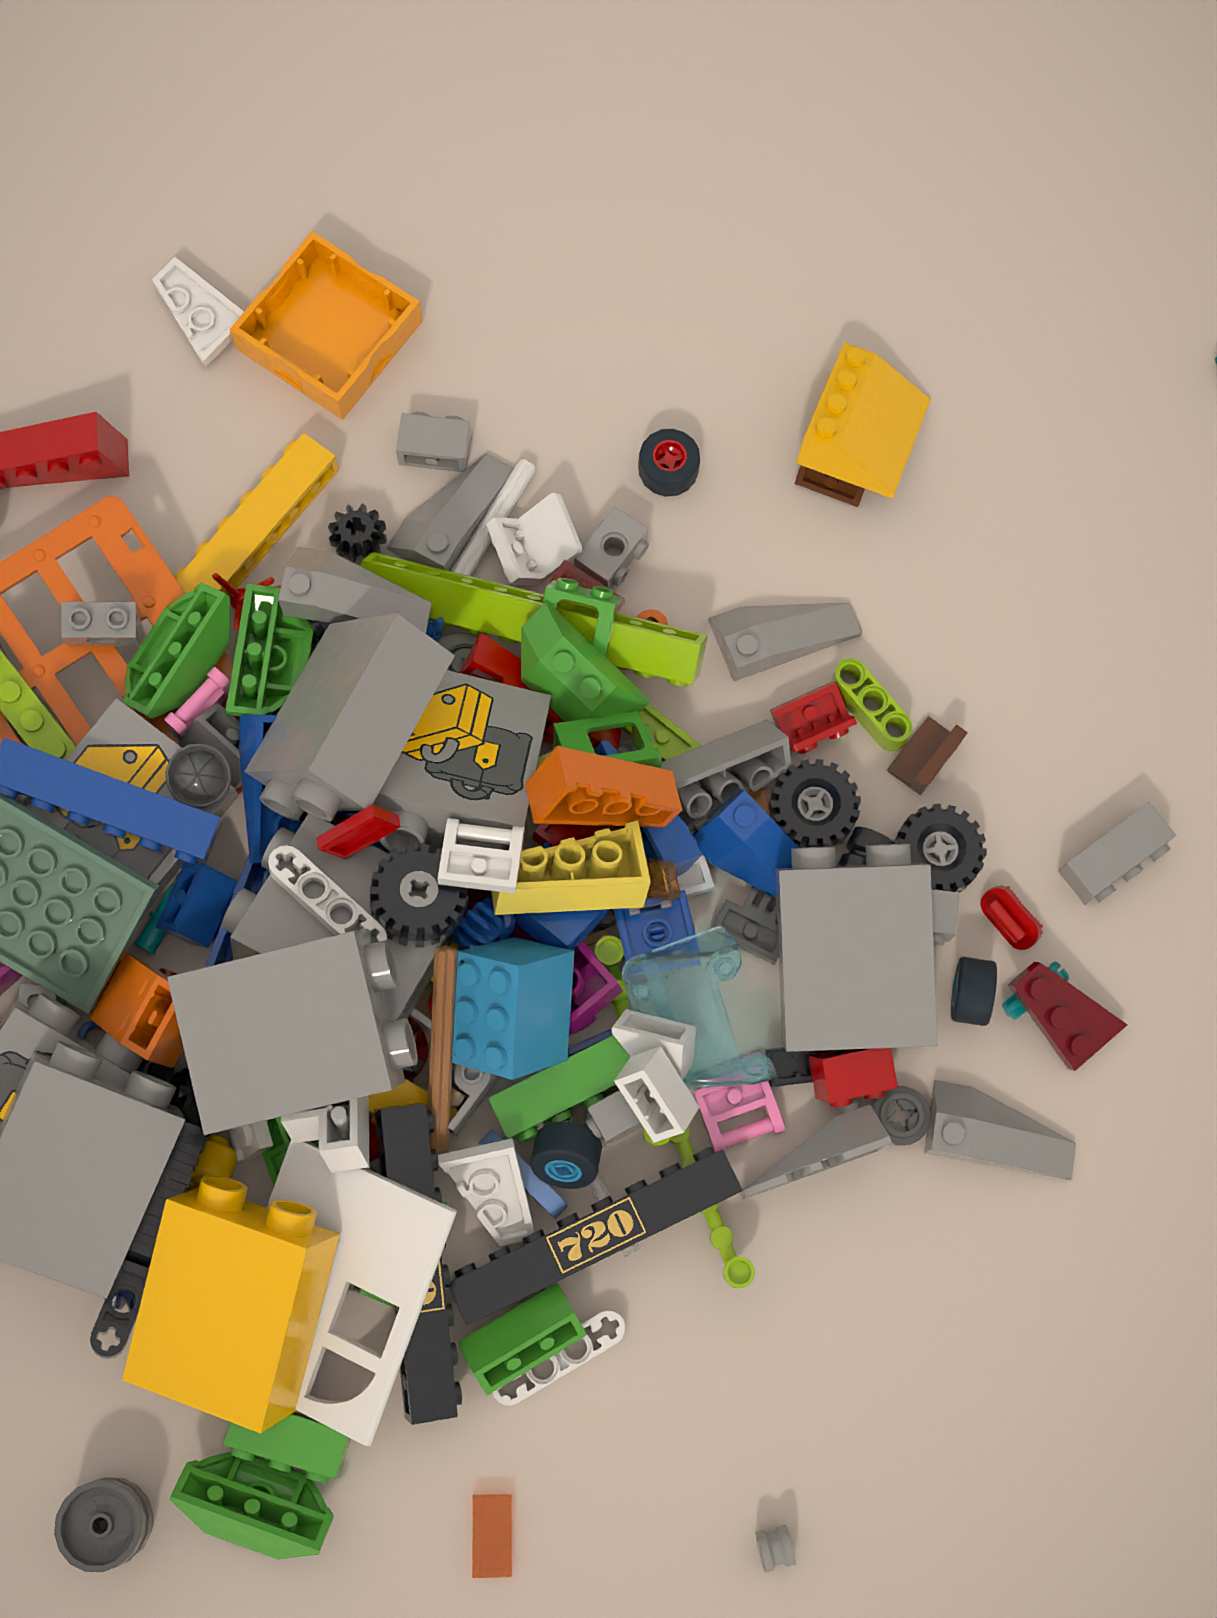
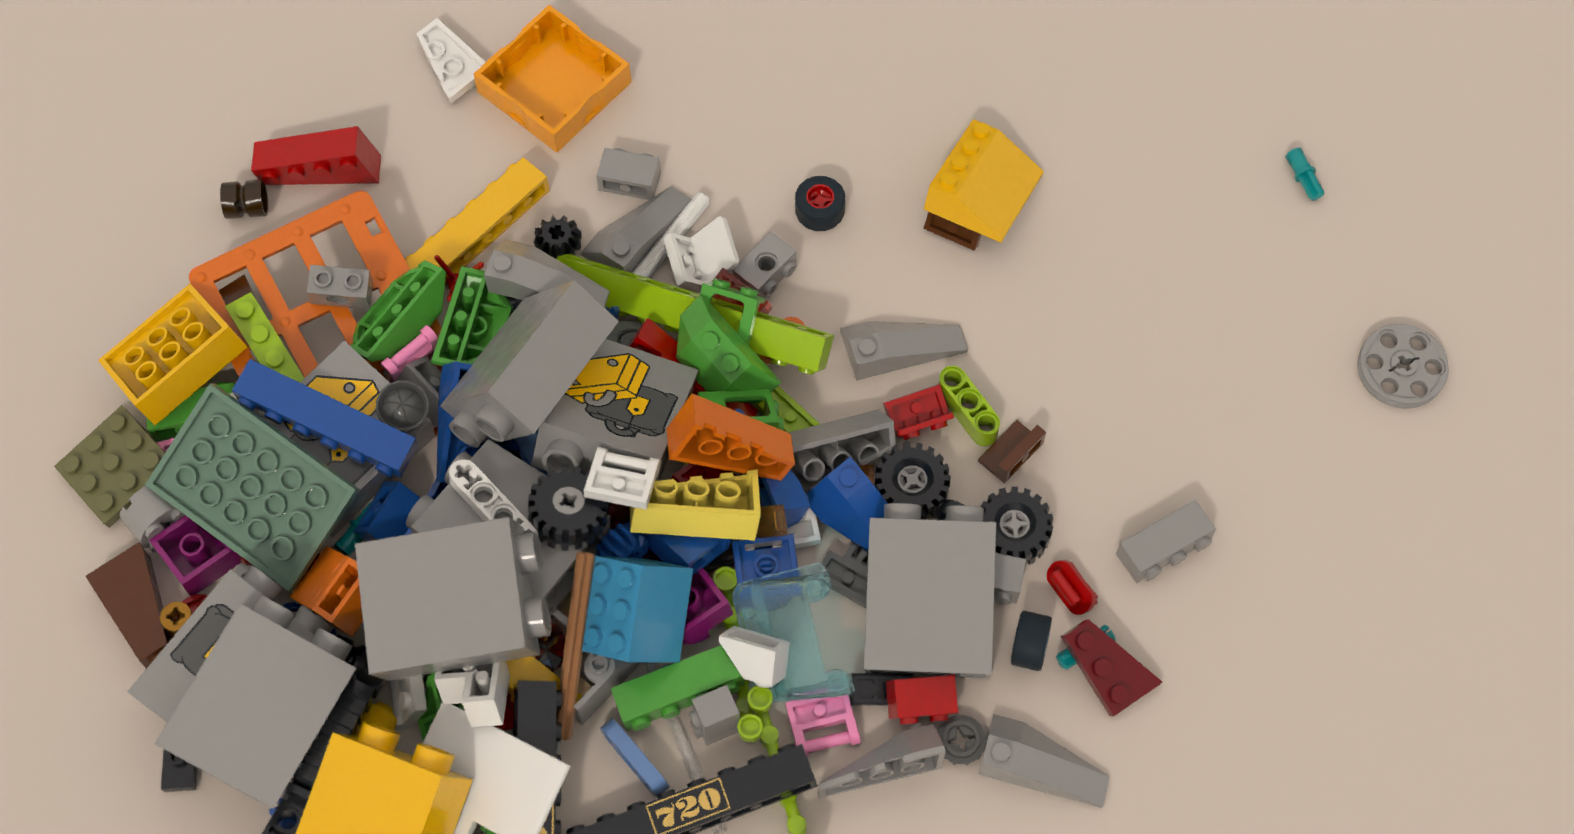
camera: 10 degrees right, 10 degrees down
(358, 832) = (524, 452): red tile -> none
(494, 1187) = (607, 760): white wing -> none
(566, 1155) = (670, 740): black wheel -> none
(657, 1094) = (749, 691): white brick -> none

